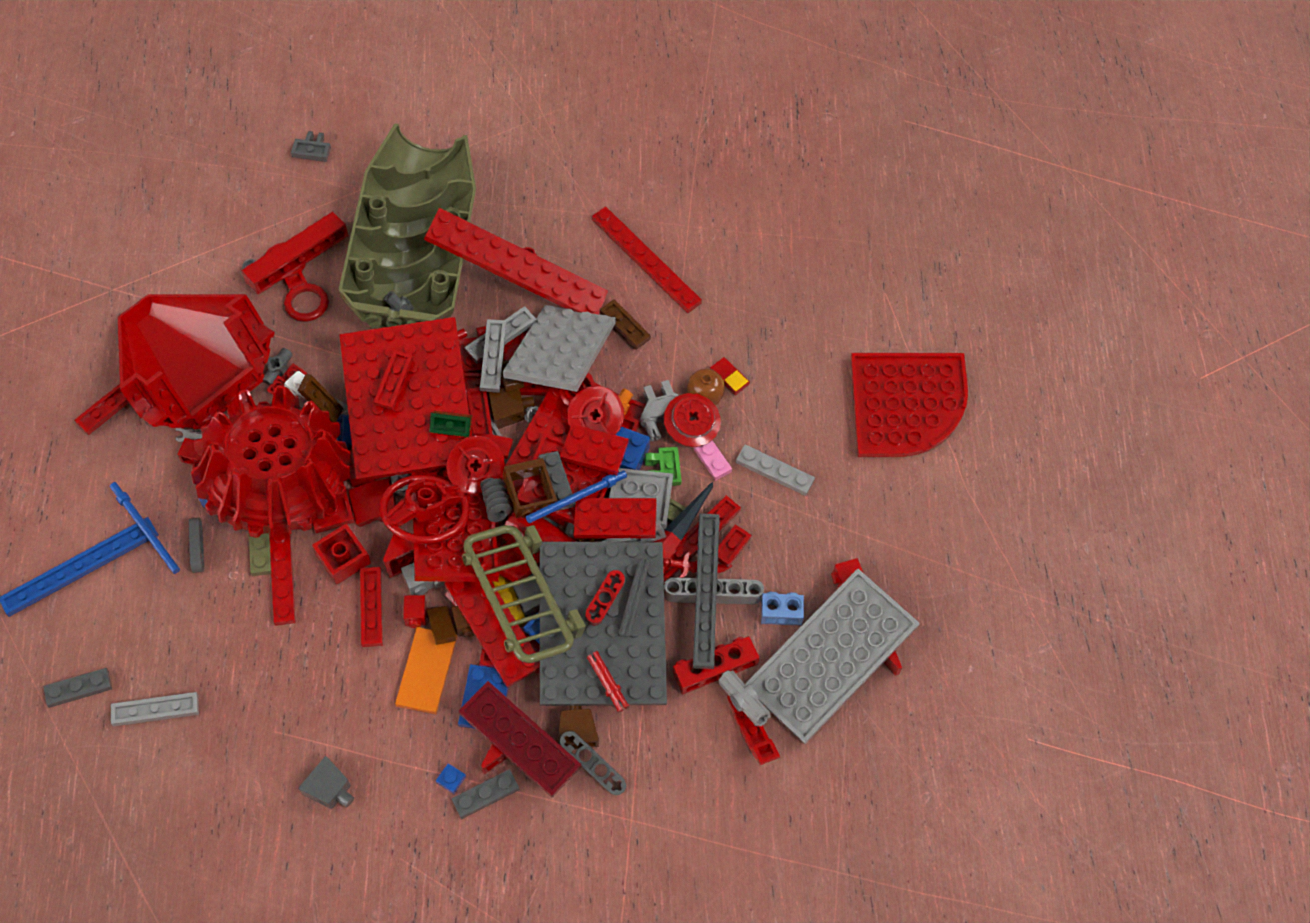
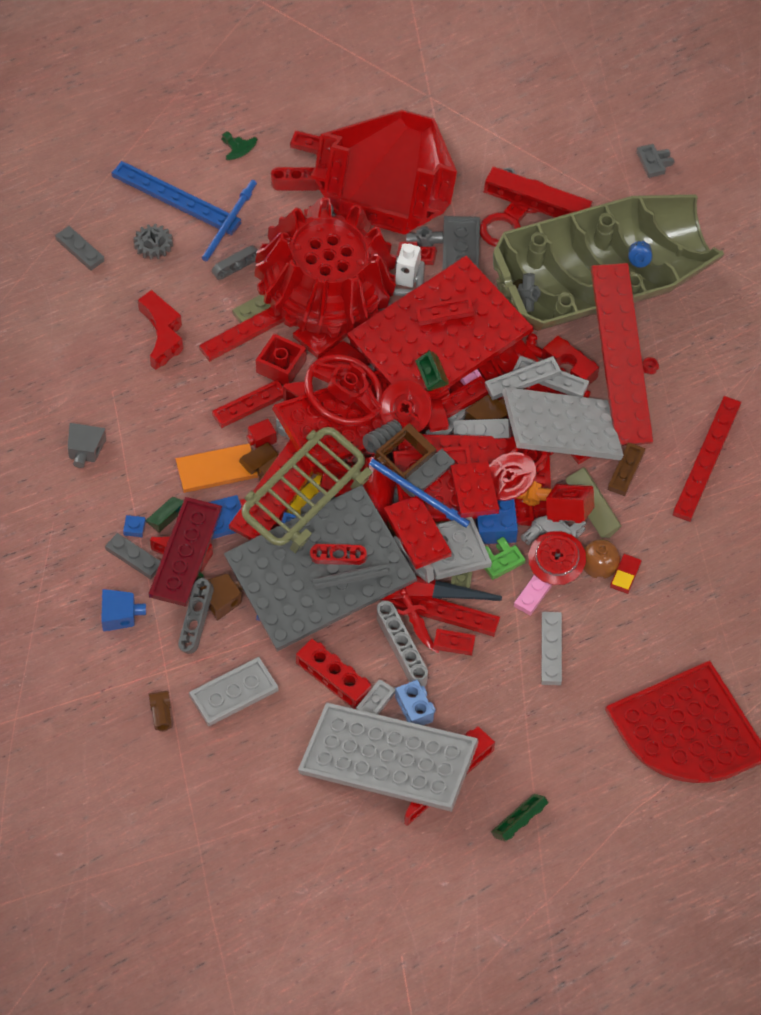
camera: 65 degrees right, 5 degrees down
(55, 480) = (238, 145): none -> dark green piece
(120, 611) = (153, 241): none -> dark grey gear
(132, 454) = (293, 179): none -> red beam
(154, 709) = (87, 303): light grey plate -> none
(228, 643) = (165, 322): none -> red arch
(306, 342) = (460, 239): none -> dark grey plate
(314, 391) = (403, 272): reddish brown plate -> none
(422, 199) = (640, 254): none -> blue head
(452, 741) = (165, 514): none -> dark green slope
(474, 314) = (567, 354): none -> red arch
(524, 413) = (489, 427): none -> light grey plate
(544, 834) = (119, 610): none -> blue torso
(612, 689) = (261, 597): red pin -> none
(646, 380) = (570, 503): none -> red container
(647, 365) = (602, 515): none -> olive slope
(671, 841) = (160, 707): none -> reddish brown piece
(690, 765) = (233, 691): none -> light grey plate
(706, 591) = (394, 633): dark grey tile -> none
(744, 698) = (311, 704): light grey piece -> none
(755, 737) = (292, 725): red slope -> none
(761, 639) = (376, 698): none -> light grey plate
(936, 574) = (520, 817): none -> dark green plate

